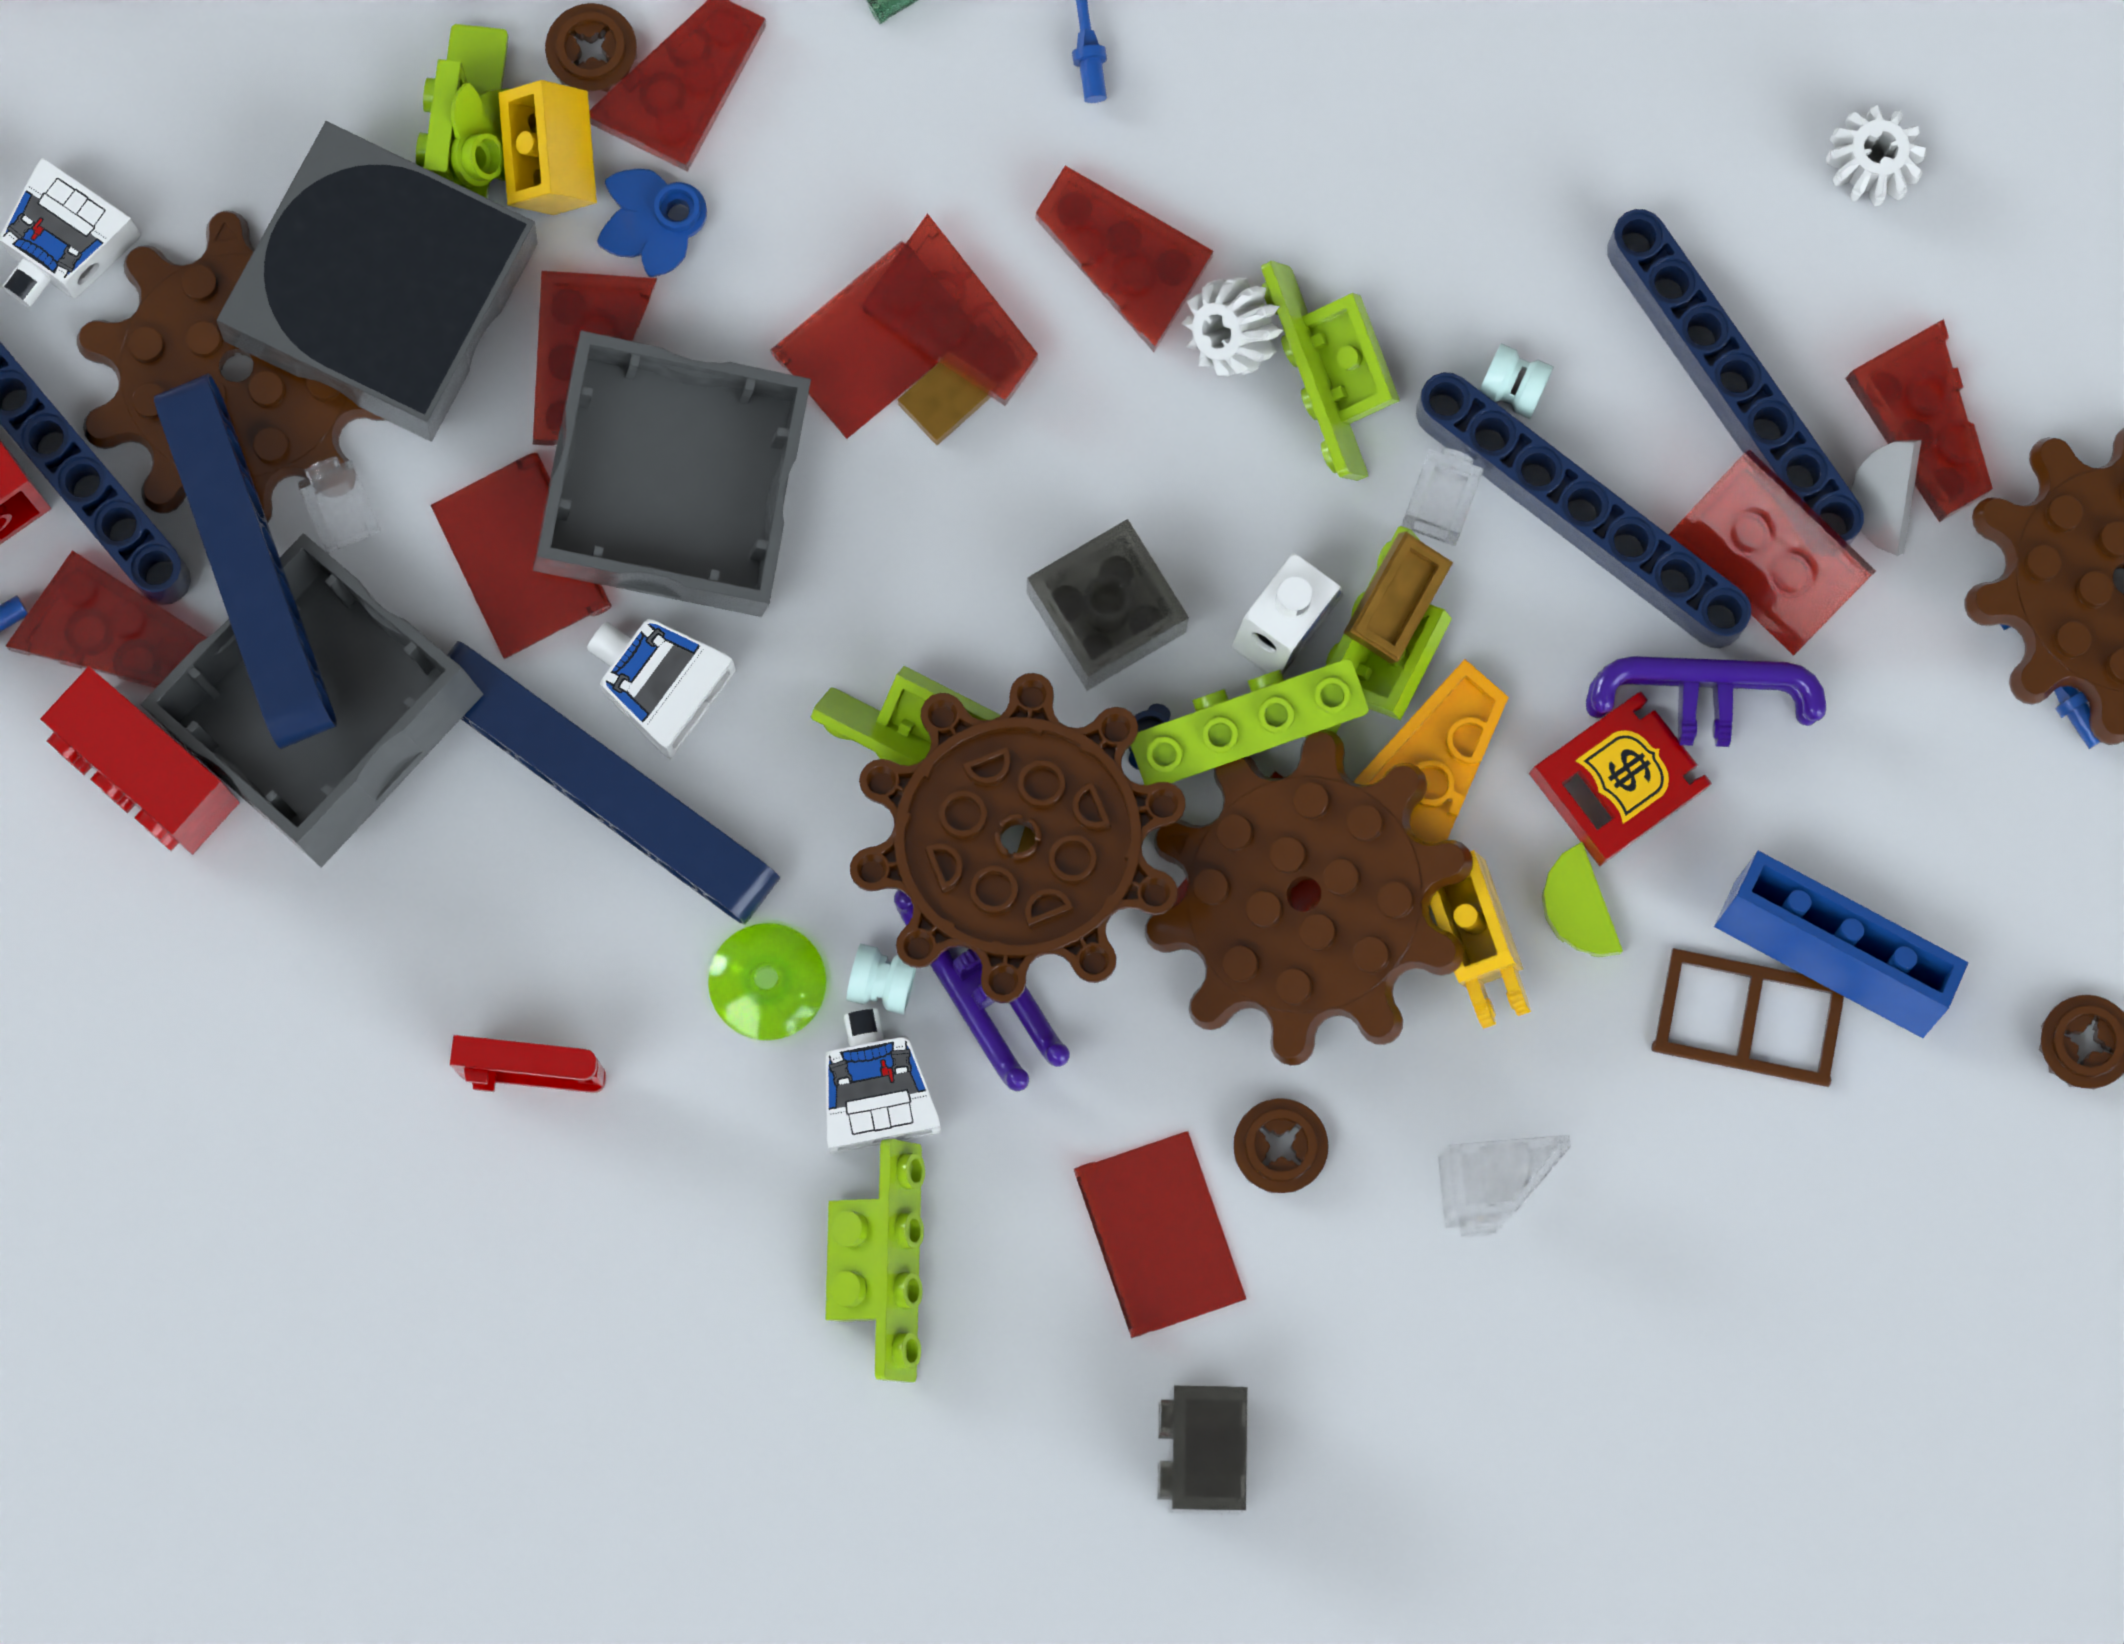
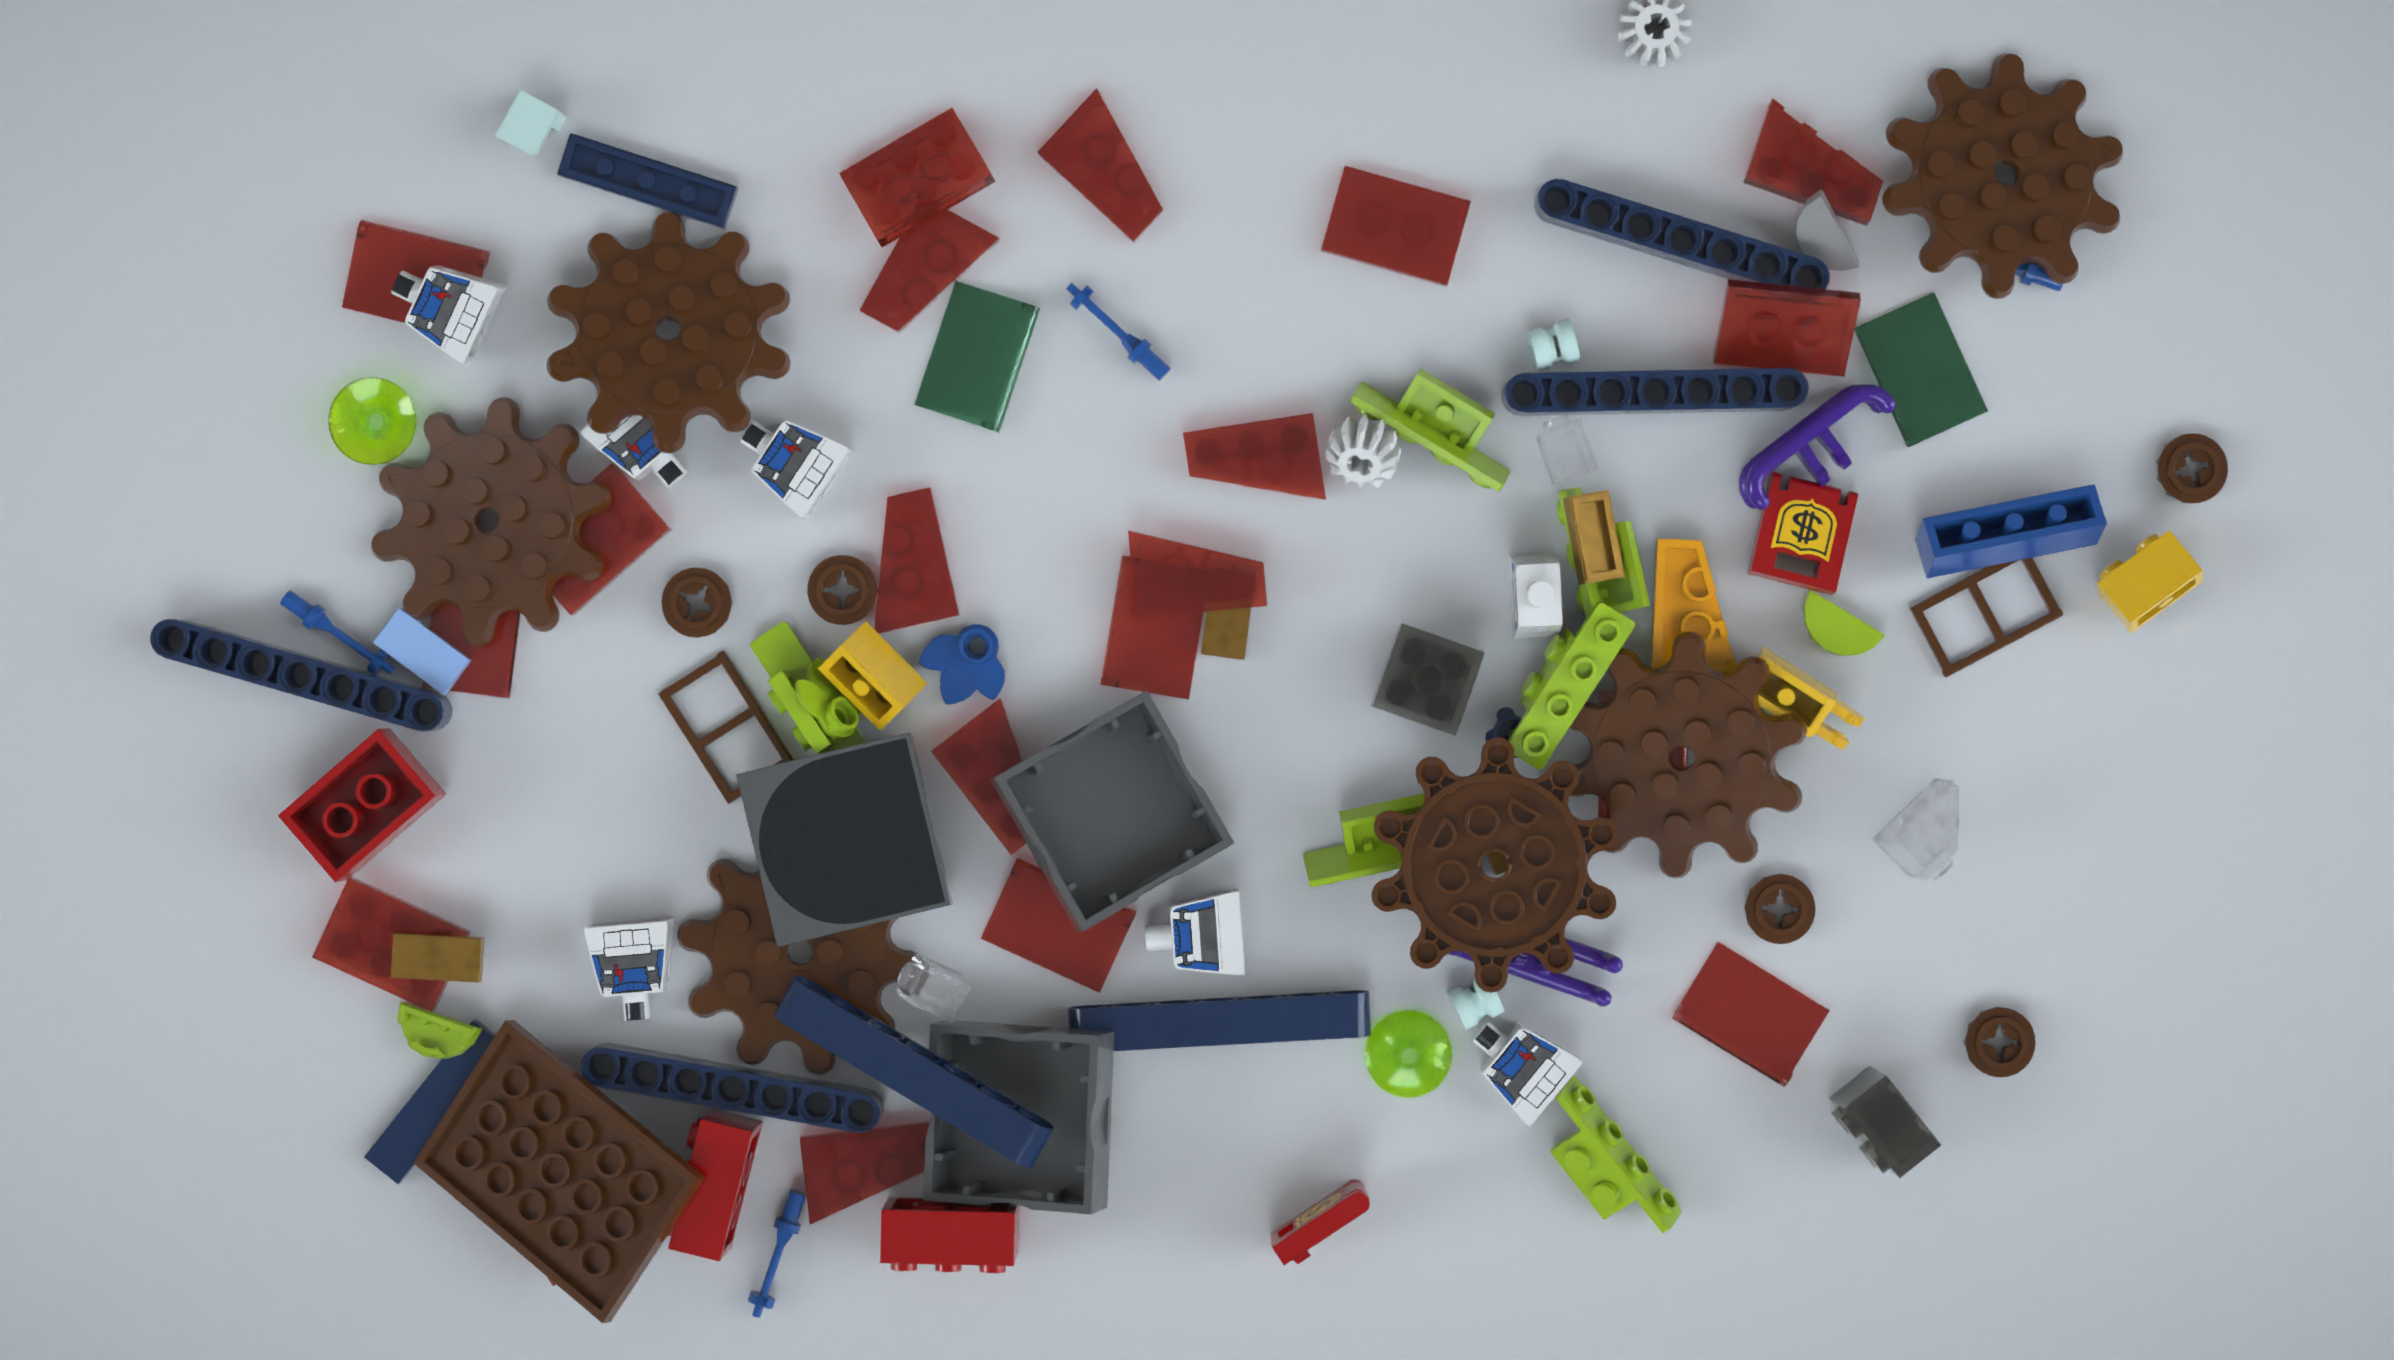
camera: 35 degrees left, 10 degrees up
(317, 86) = (698, 745): none -> reddish brown window
(1429, 1476) = (2013, 1056): none -> reddish brown gear
(1452, 142) = (1395, 226): none -> clear red tile
(1879, 715) = (1921, 369): none -> clear green piece
(1948, 1115) = (2149, 580): none -> yellow brick

